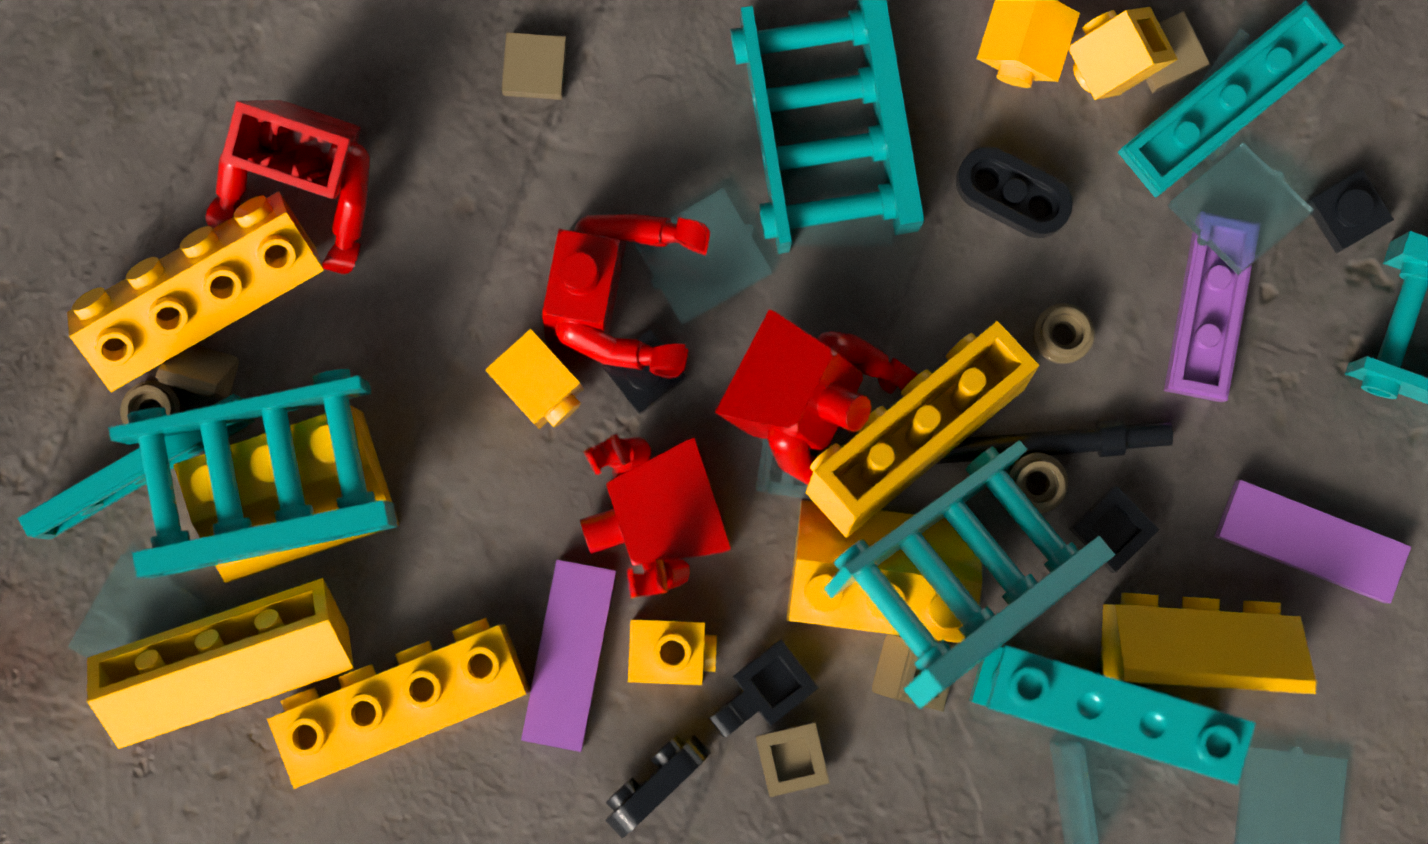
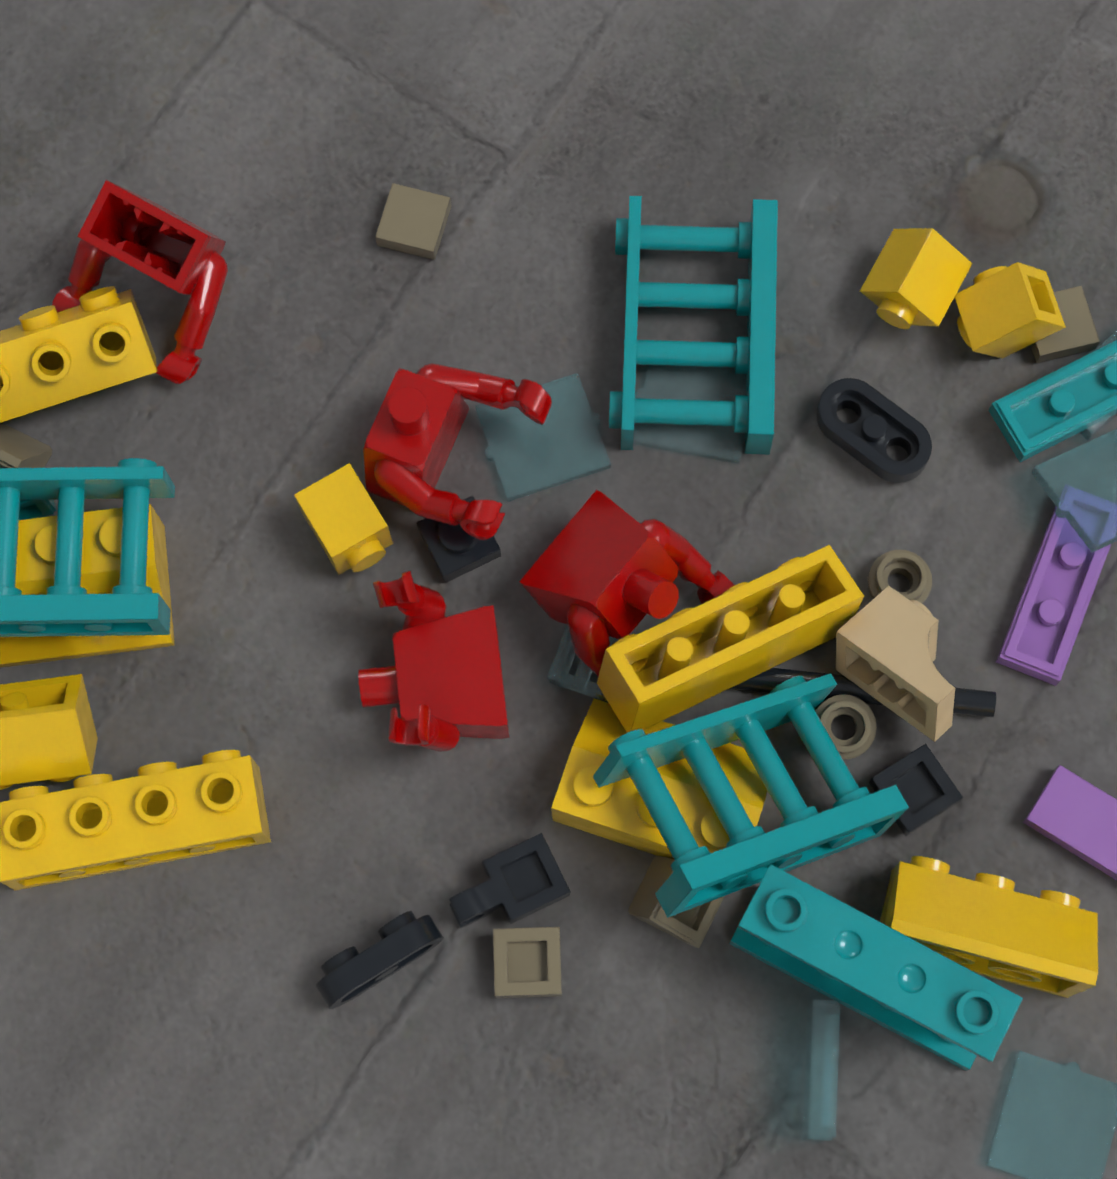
camera: 15 degrees right, 10 degrees down
(569, 655) = (317, 810): medium lavender tile -> none
(670, 652) = (422, 823): yellow brick -> none
(1072, 414) = (891, 657): none -> tan arch

